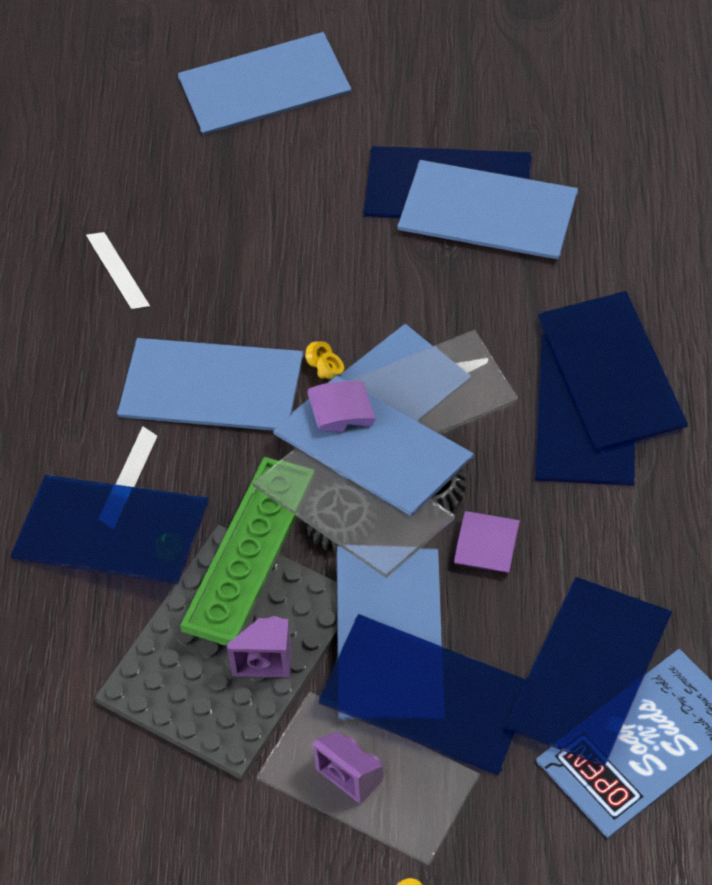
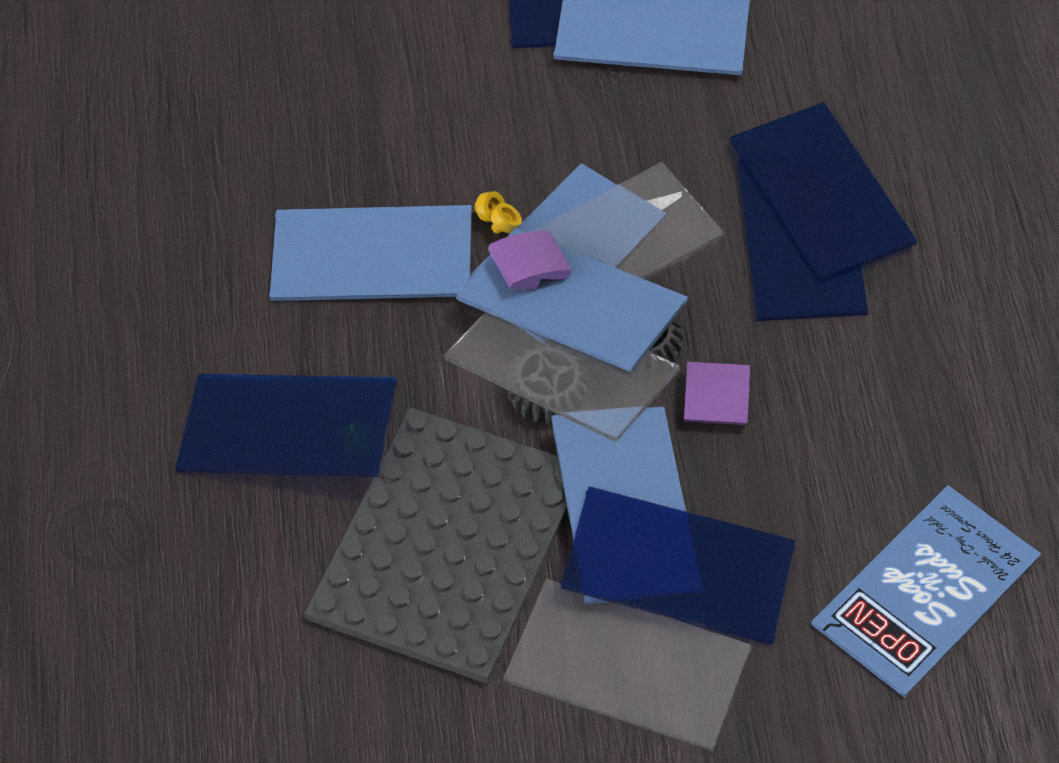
camera: 10 degrees left, 0 degrees up
(118, 270) = (239, 136): white sticker -> none
(137, 458) = (301, 343): white sticker -> none
(239, 566) = (446, 449): bright green plate -> none
(262, 649) = (490, 536): medium lavender slope -> none
(347, 765) = (606, 652): medium lavender slope -> none
(589, 671) = (853, 520): clear blue piece -> none

